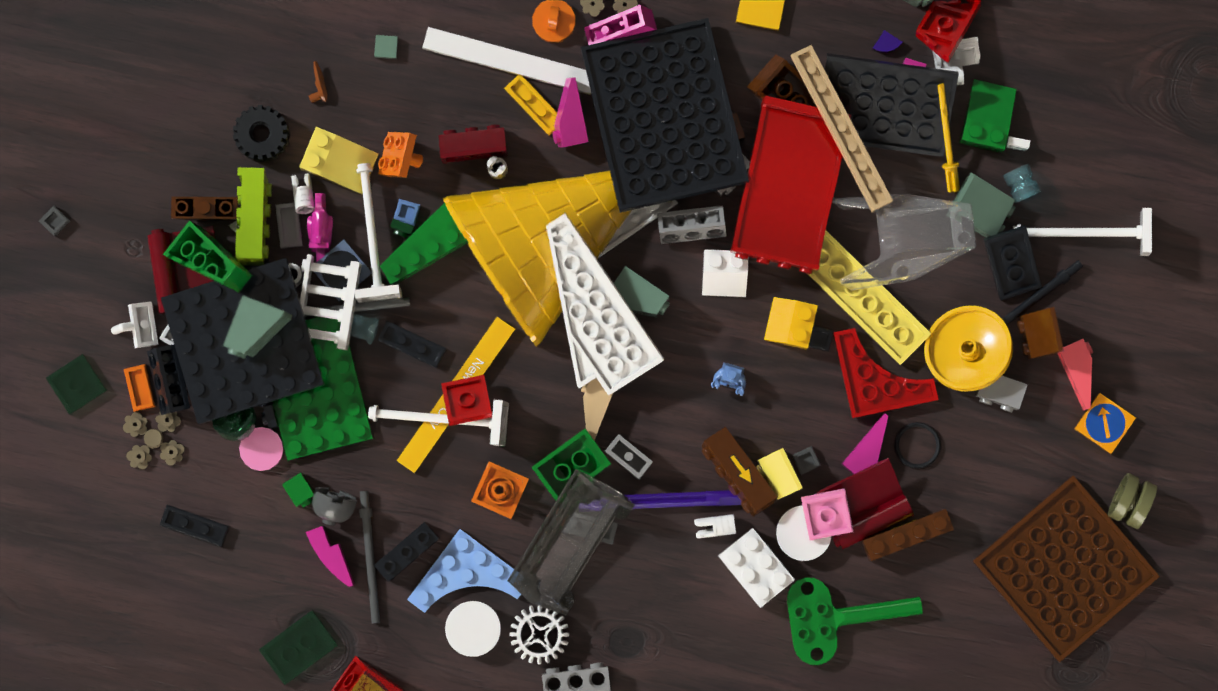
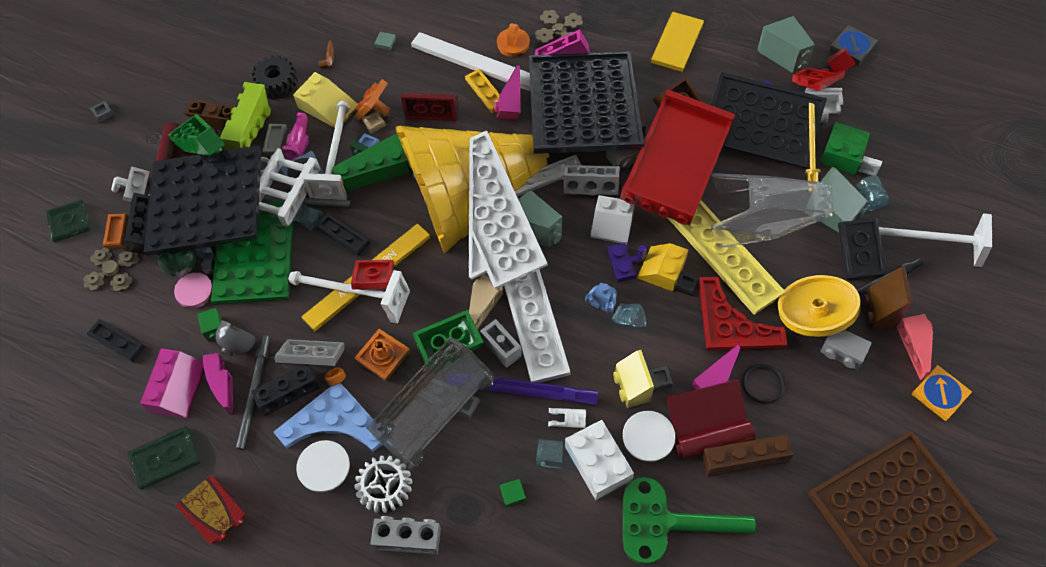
camera: 15 degrees right, 25 degrees down
(254, 327) = (211, 177): sand green slope -> none
(282, 567) = (172, 384): none -> dark pink slope
(303, 195) = (290, 118): white hinge -> none
(407, 183) = (374, 122): none -> tan tile
(421, 505) = (310, 352): none -> light grey tile
(455, 525) = (335, 376): none -> orange tile
(501, 171) = (444, 118): white hinge -> none
(664, 430) = (536, 328): none -> white plate
(673, 616) = (512, 492): none -> green tile
(704, 570) = (549, 453): none -> clear light blue panel
(738, 471) = (597, 372): reddish brown brick -> none
(744, 324) = (623, 263): none -> dark purple plate
(763, 393) = (630, 314): none -> clear light blue tile
(827, 514) = (673, 418): bright pink tile -> none
(841, 128) = (728, 119): tan plate -> none
(1132, 501) = (972, 460): olive wheel -> none

